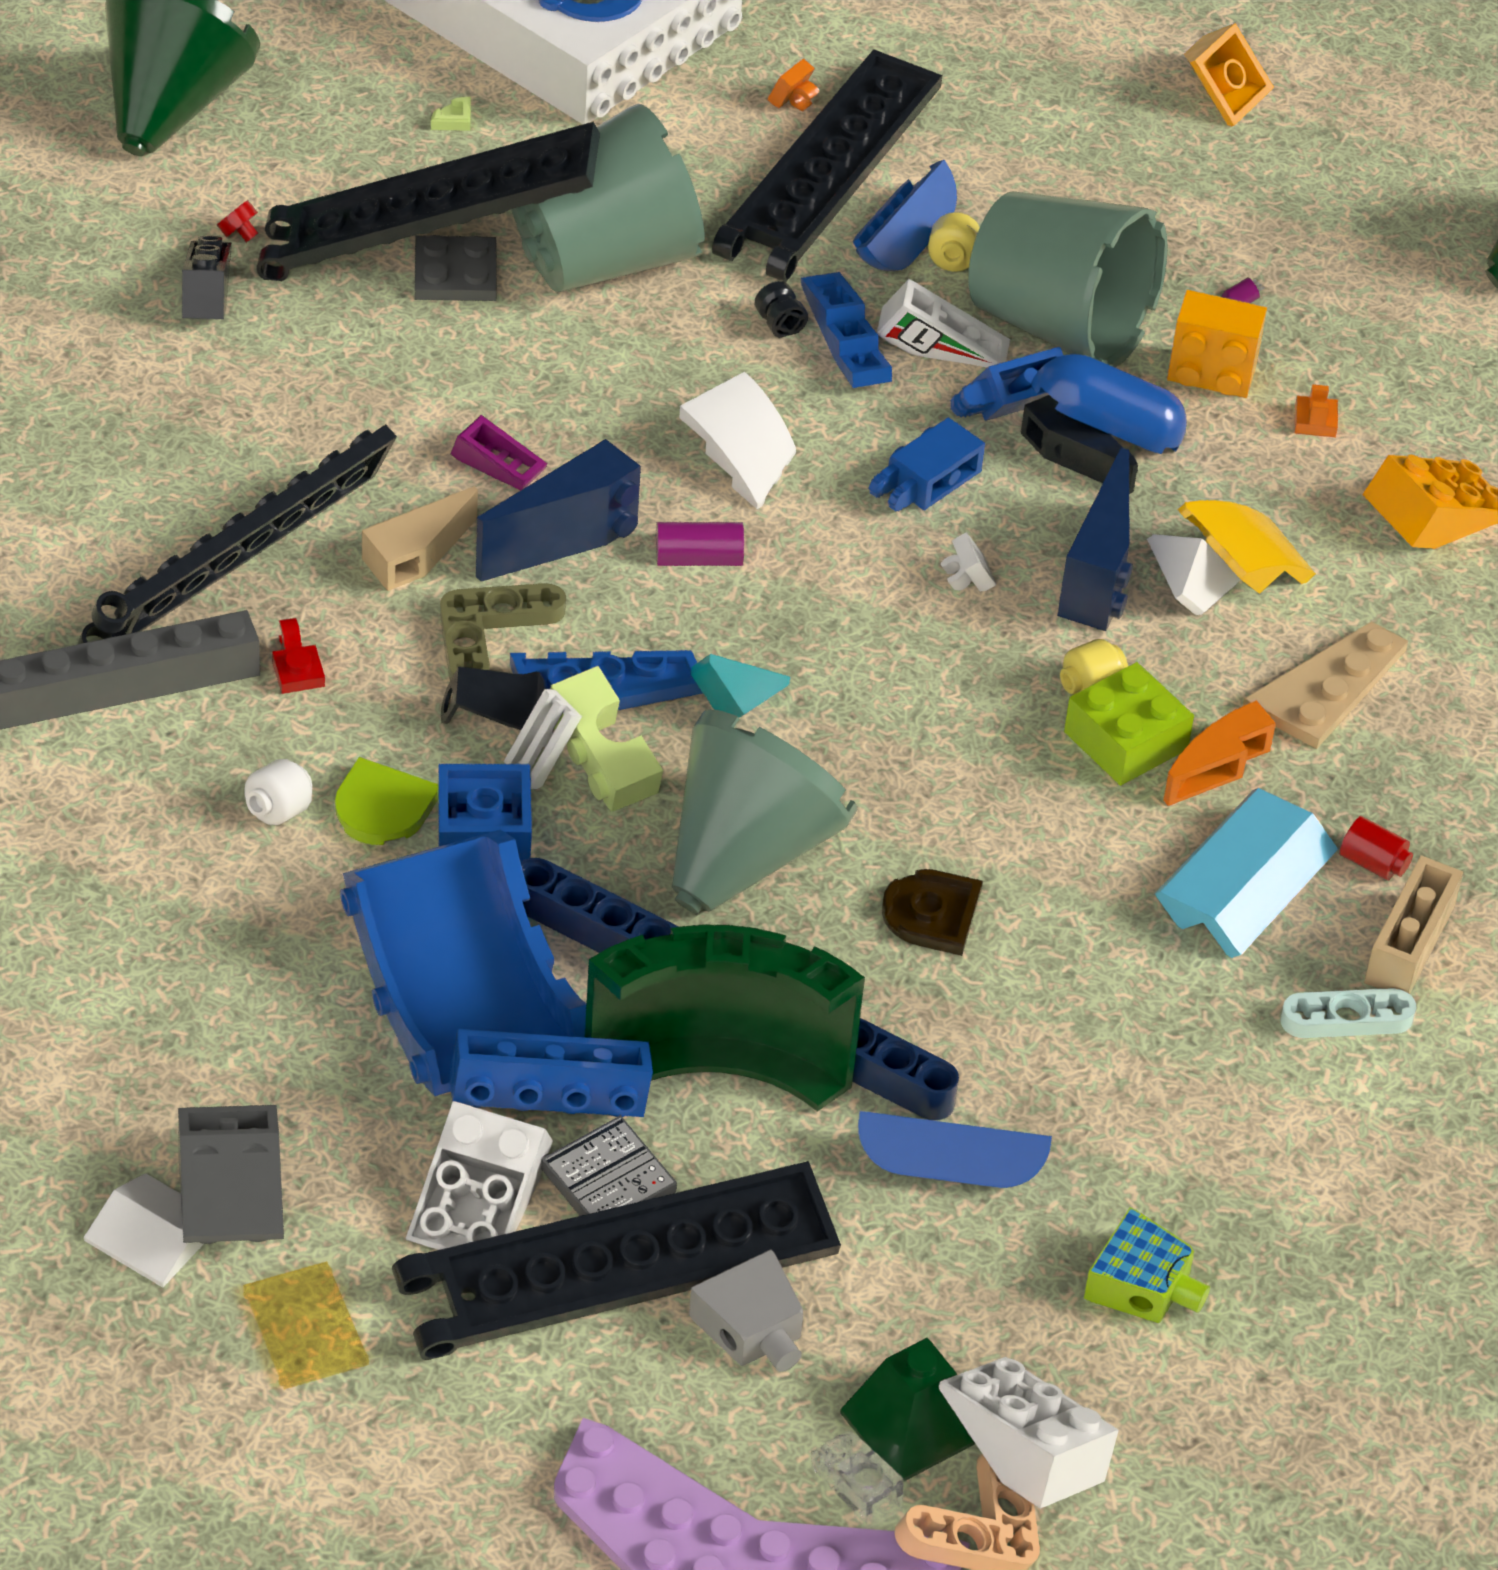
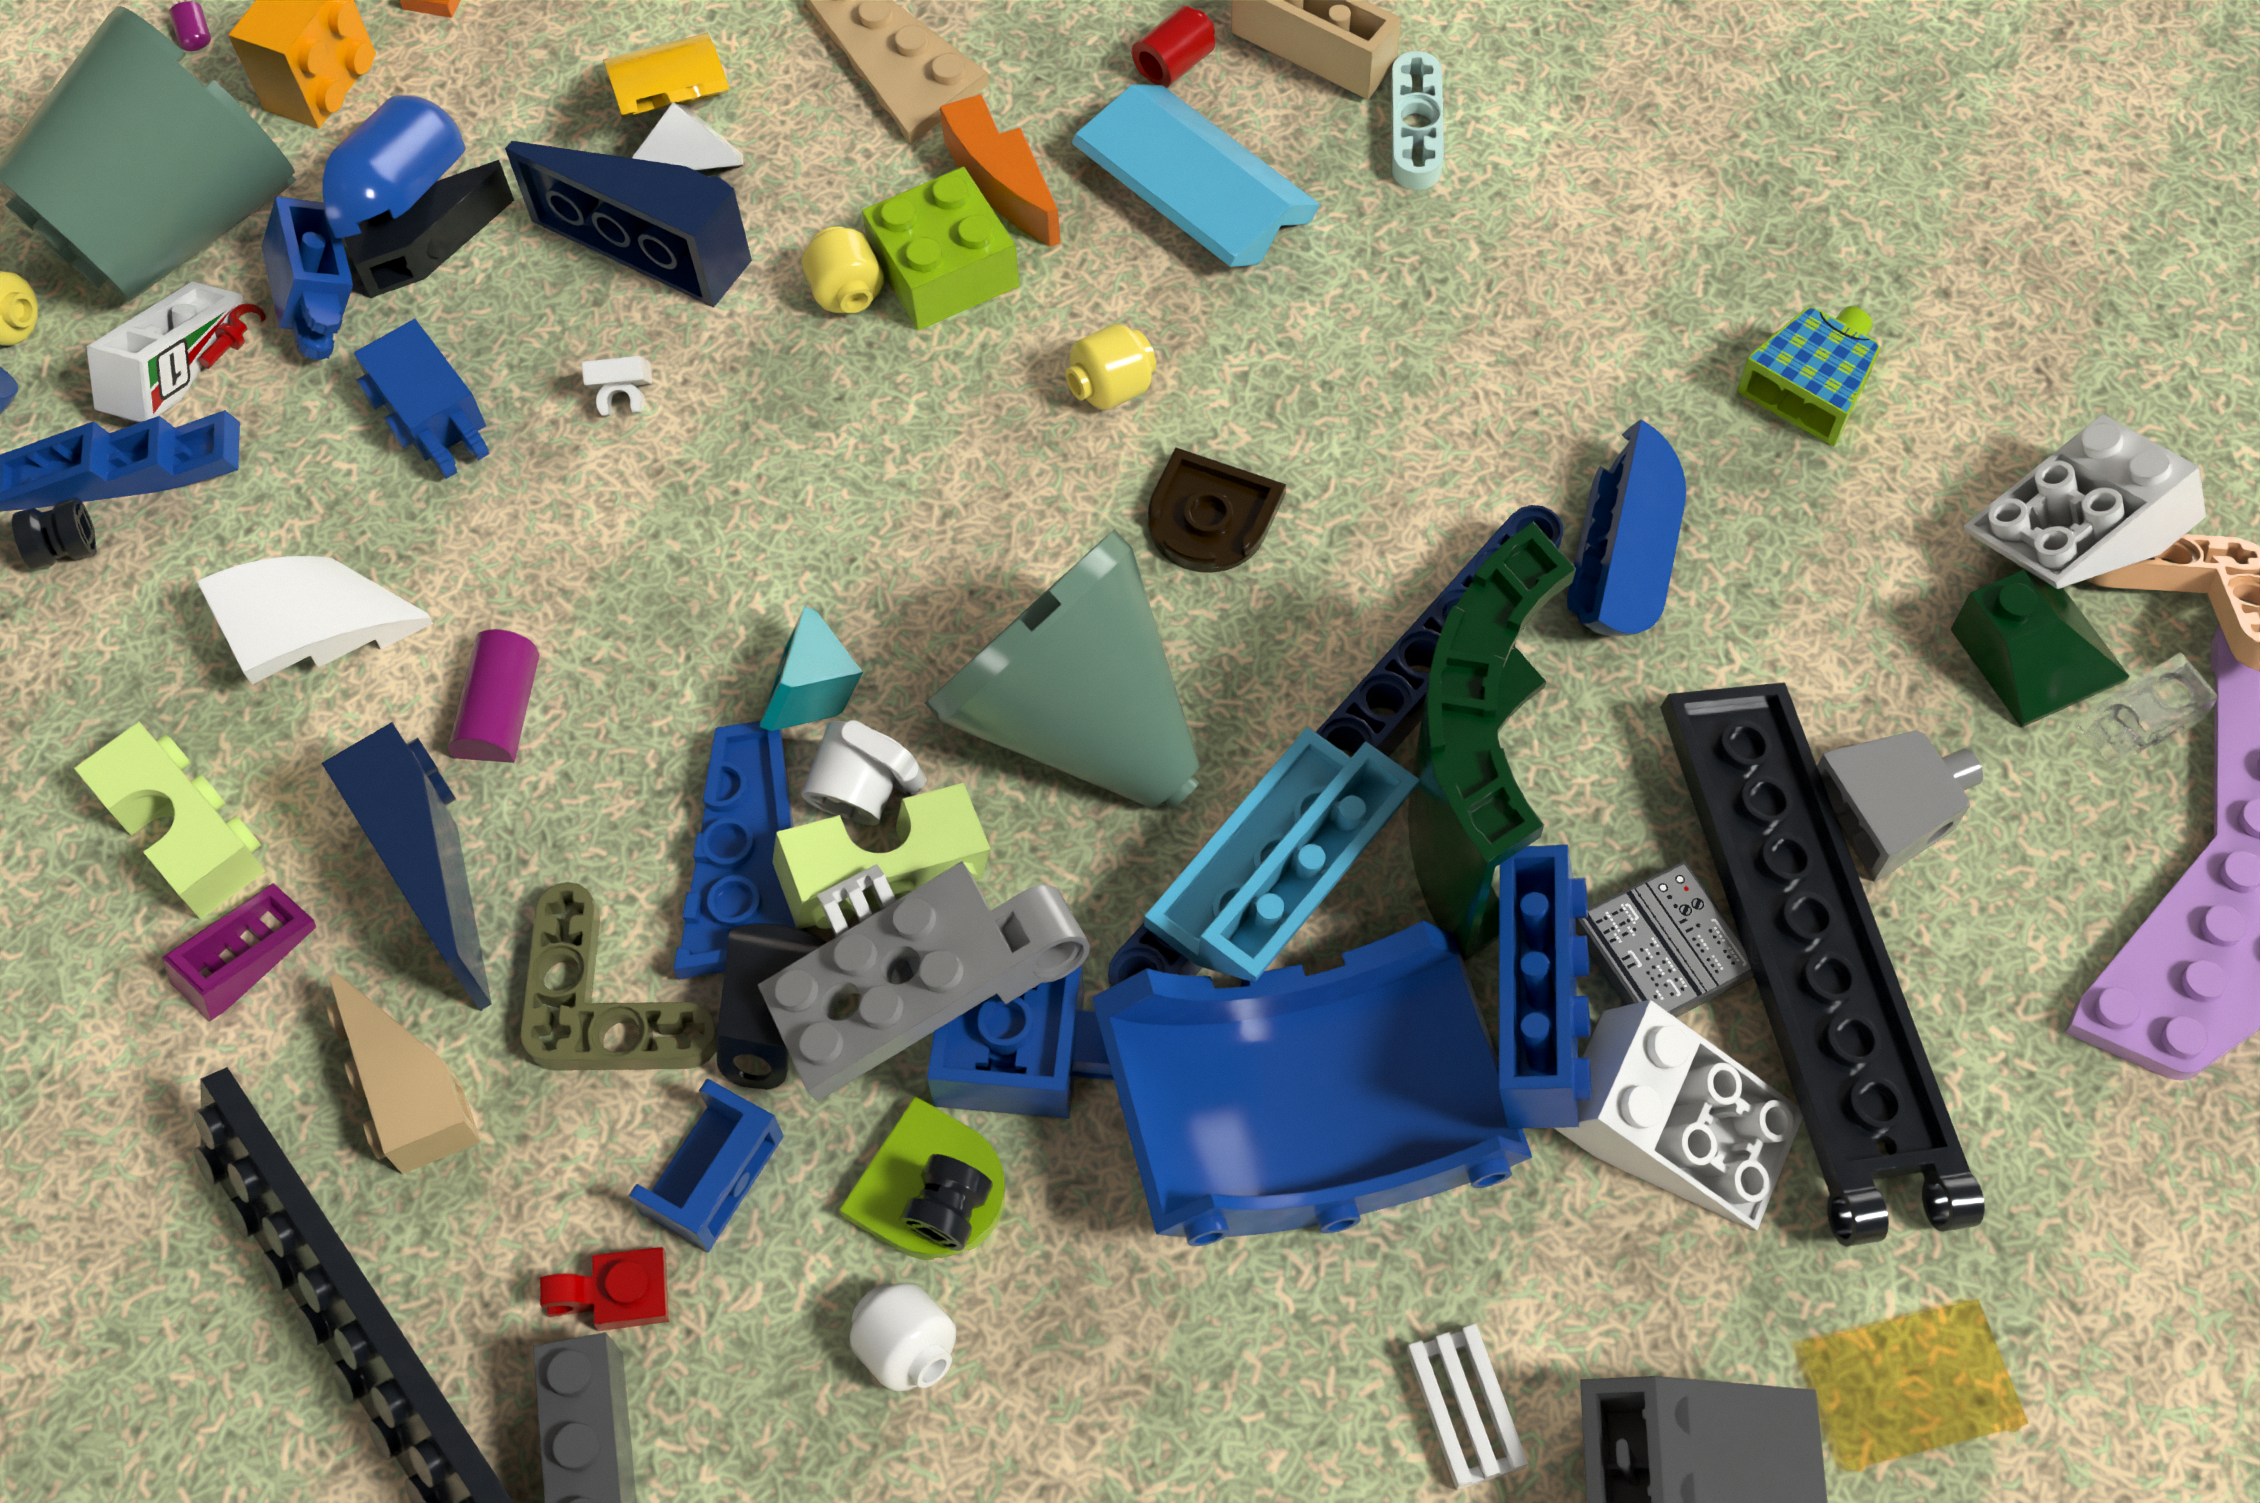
camera: 75 degrees left, 15 degrees up
(263, 1075) = (1445, 1347): none -> white tile
(359, 793) = (946, 1202): none -> black wheel
(375, 696) = (711, 1168): none -> blue panel
(511, 746) = (963, 961): none -> light grey hinge
(599, 906) = (1279, 855): none -> medium azure slope
(601, 390) = (200, 852): none -> yellowish green arch
(667, 724) = (858, 771): none -> white piece
(964, 365) = (229, 335): none -> red hand
(1041, 830) = (1110, 366): none -> light yellow head

